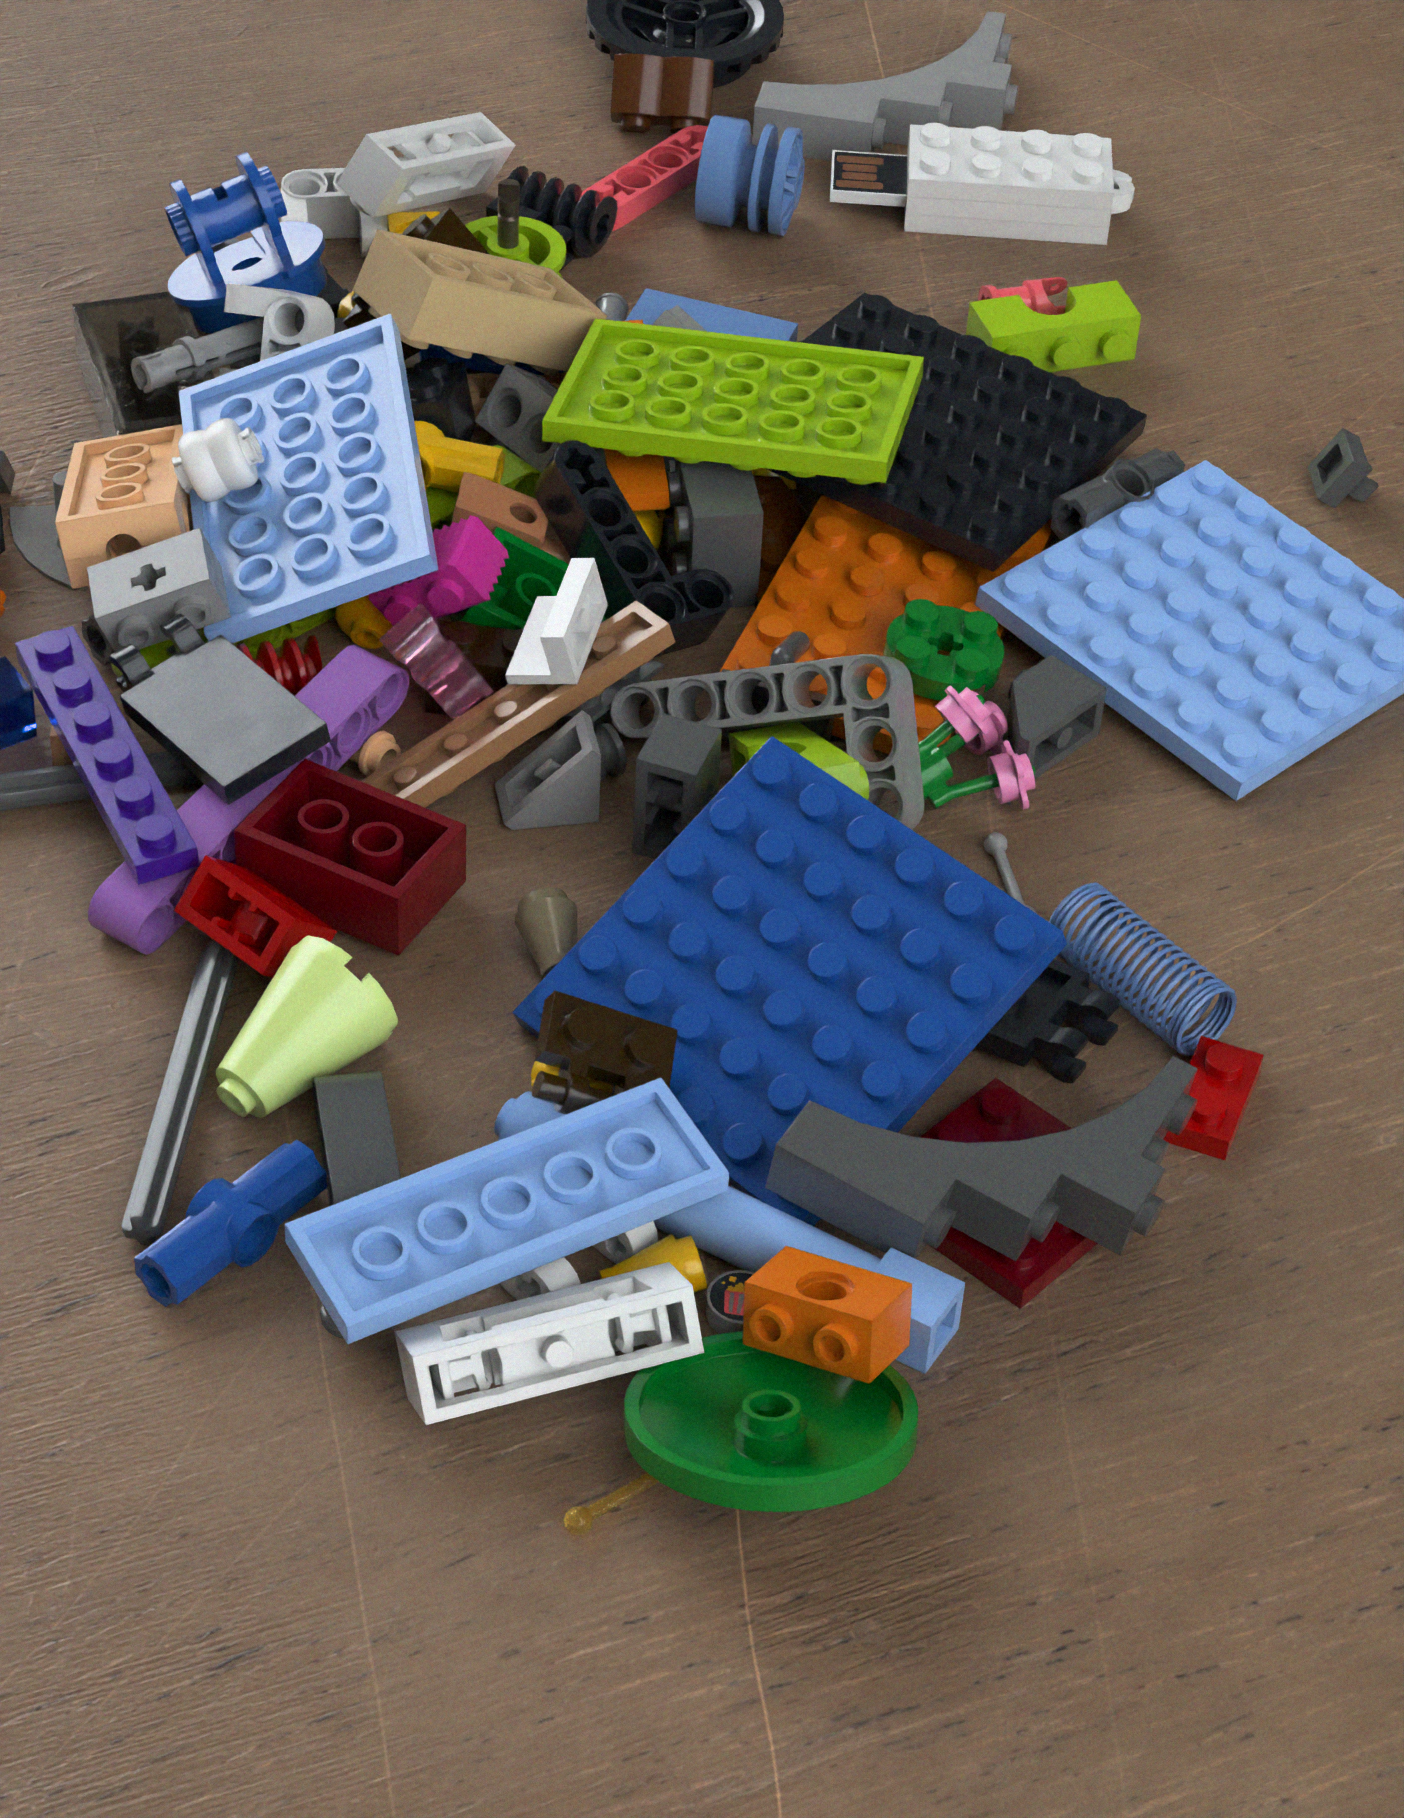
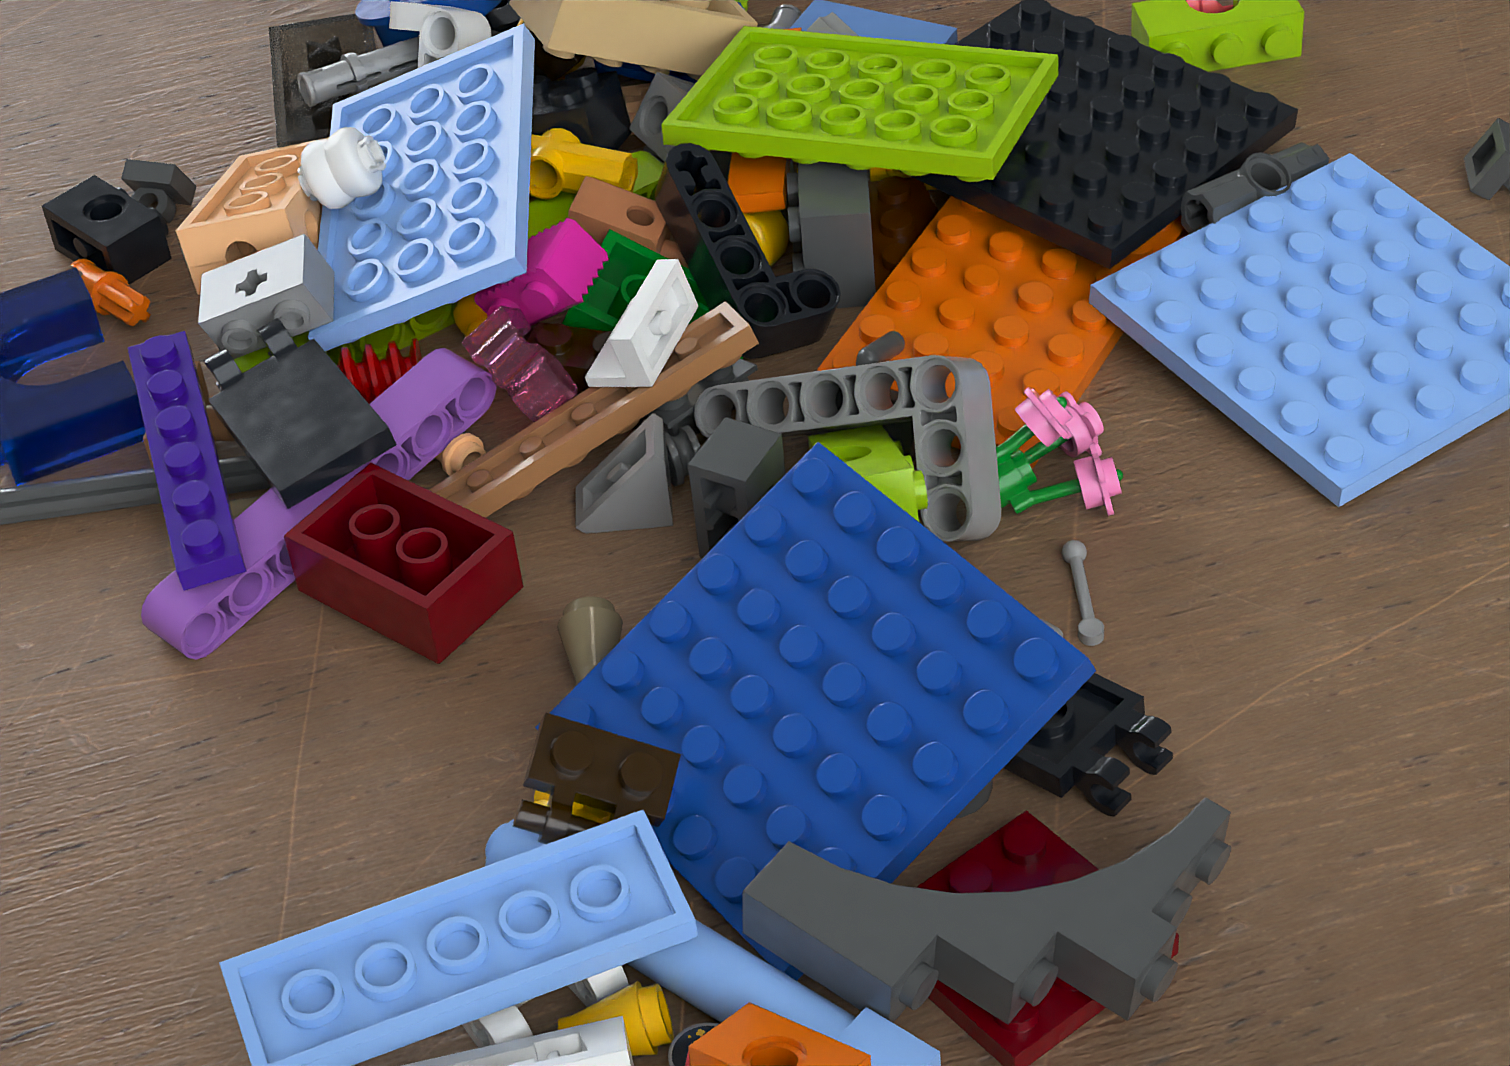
camera: 15 degrees right, 0 degrees up
(180, 1095) = (185, 810): dark grey axle -> none
(230, 1223) = (189, 948): blue piece -> none
(247, 914) = (294, 628): red brick -> none
(302, 1028) = (309, 747): yellowish green cone -> none
(354, 1133) = (341, 857): dark grey beam -> none
(969, 638) = (1071, 336): green plate -> none
(1053, 712) = (1152, 416): dark grey slope -> none
(1095, 932) = (1221, 706): medium blue piece -> none
(1223, 1091) = (1268, 836): red plate -> none

